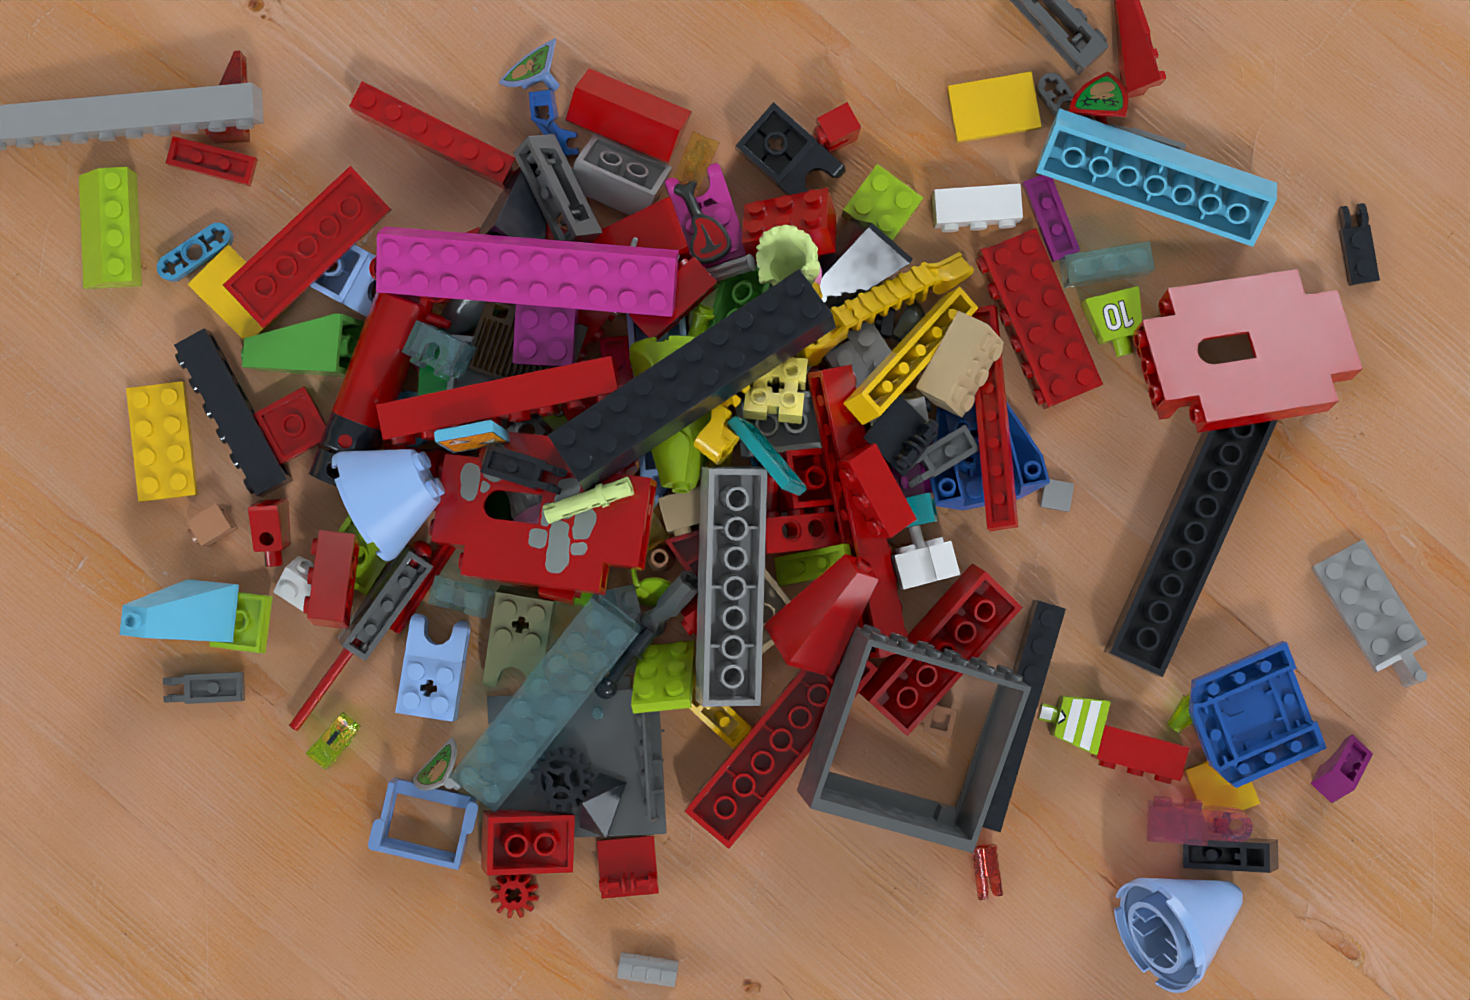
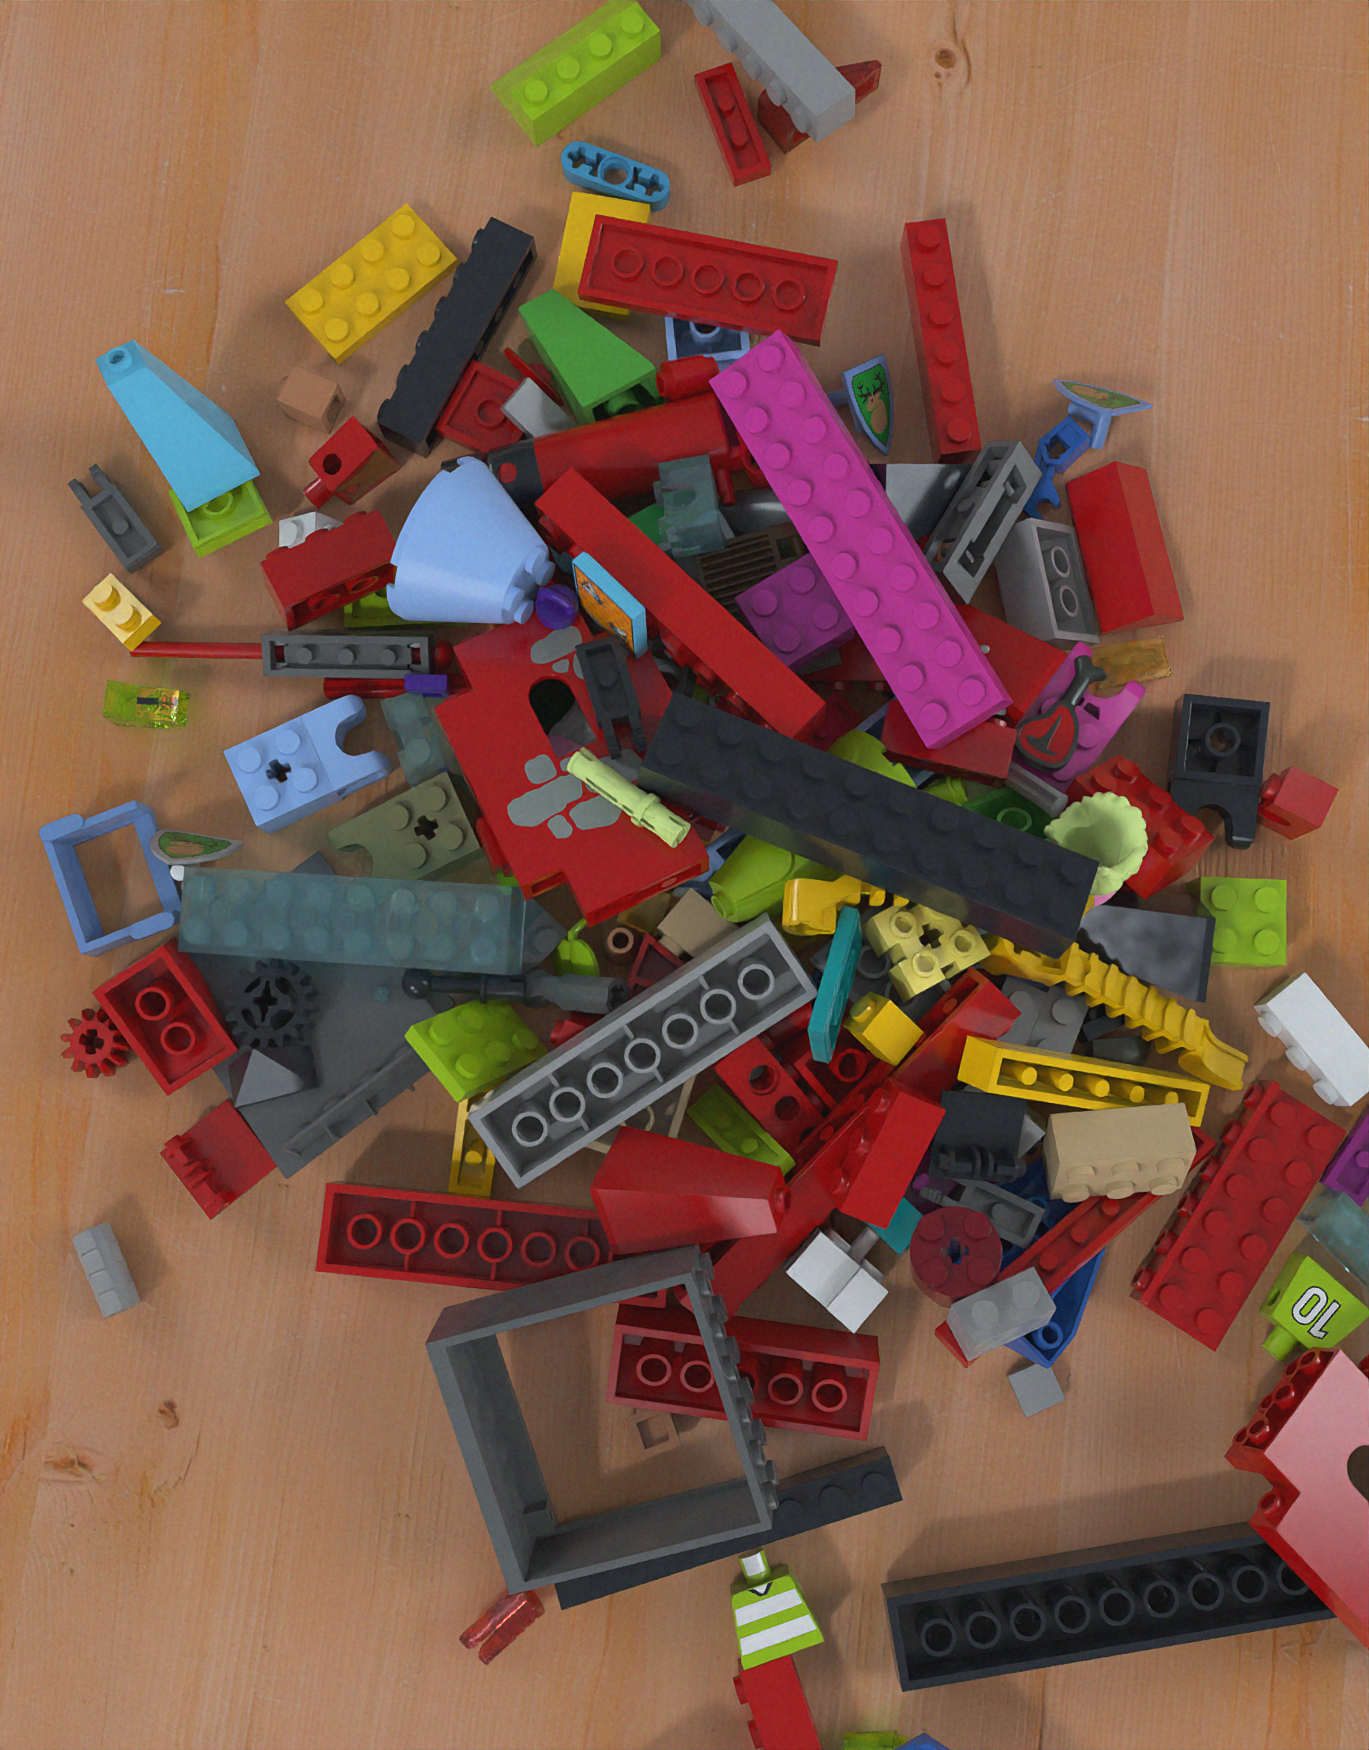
camera: 65 degrees right, 5 degrees down
(266, 720) = (121, 612): none -> yellow plate
(287, 384) = (536, 373): none -> red piece
(315, 398) = (534, 411): none -> light grey tile
(357, 298) = (686, 377): none -> red brick
(436, 569) = (430, 685): none -> dark purple tile
(440, 200) = (870, 401): none -> shield
(448, 466) = (557, 606): none -> dark purple tile
(807, 445) = (882, 1028): none -> yellow brick
(940, 487) = (954, 1230): none -> dark red brick
(1001, 488) = (1000, 1313): none -> light grey brick

